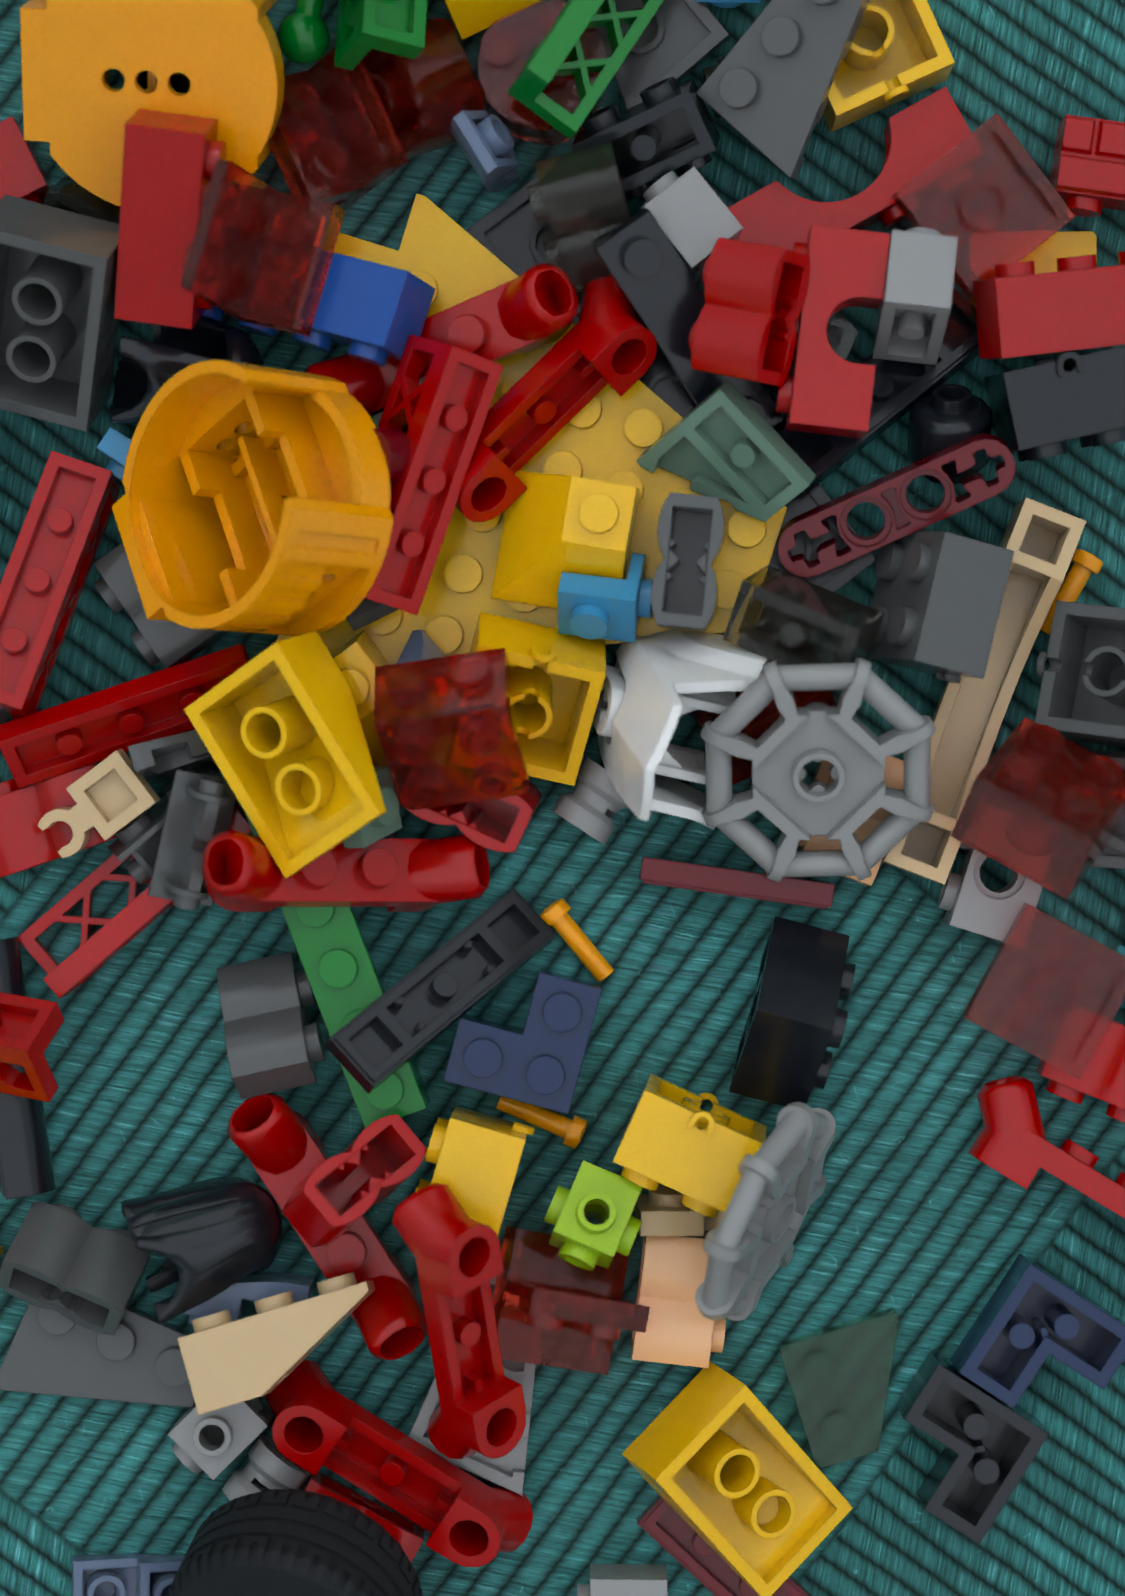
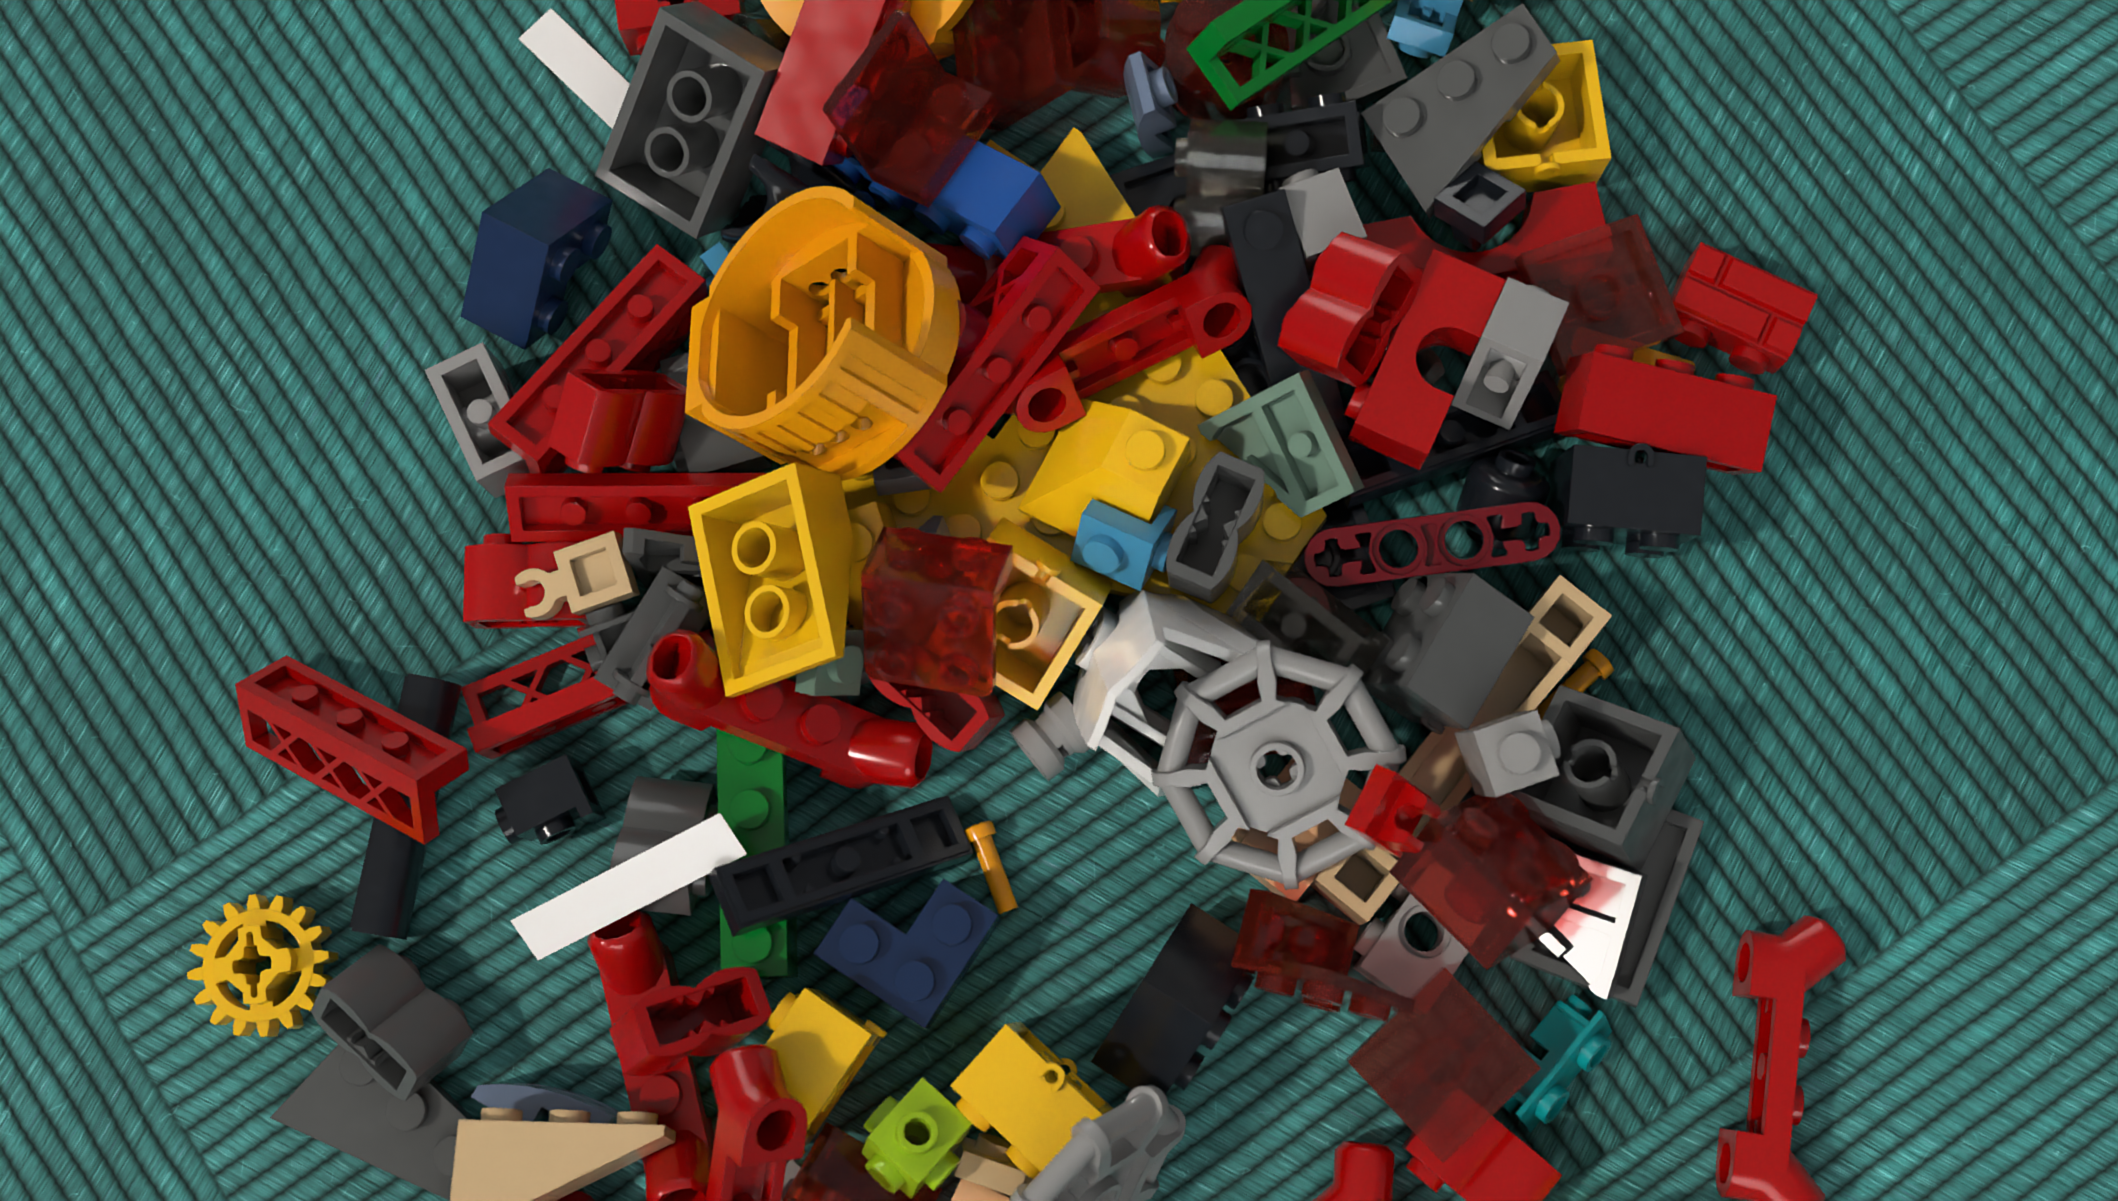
camera: 25 degrees right, 10 degrees down
(83, 641) = (618, 420): none -> red brick
(141, 1020) = (547, 802): none -> black brick
(209, 1236) = (532, 1031): black hair -> none
(254, 1078) = (628, 886): none -> white sticker
(550, 1121) = (923, 1050): light orange piece -> none
(736, 883) = (1161, 857): dark red tile -> none
(840, 153) = (1479, 205): none -> black tile
(897, 926) = (1308, 952): none -> clear red bracket
(936, 783) = (1390, 812): none -> red tile
(1028, 689) = (1509, 753): none -> light grey brick

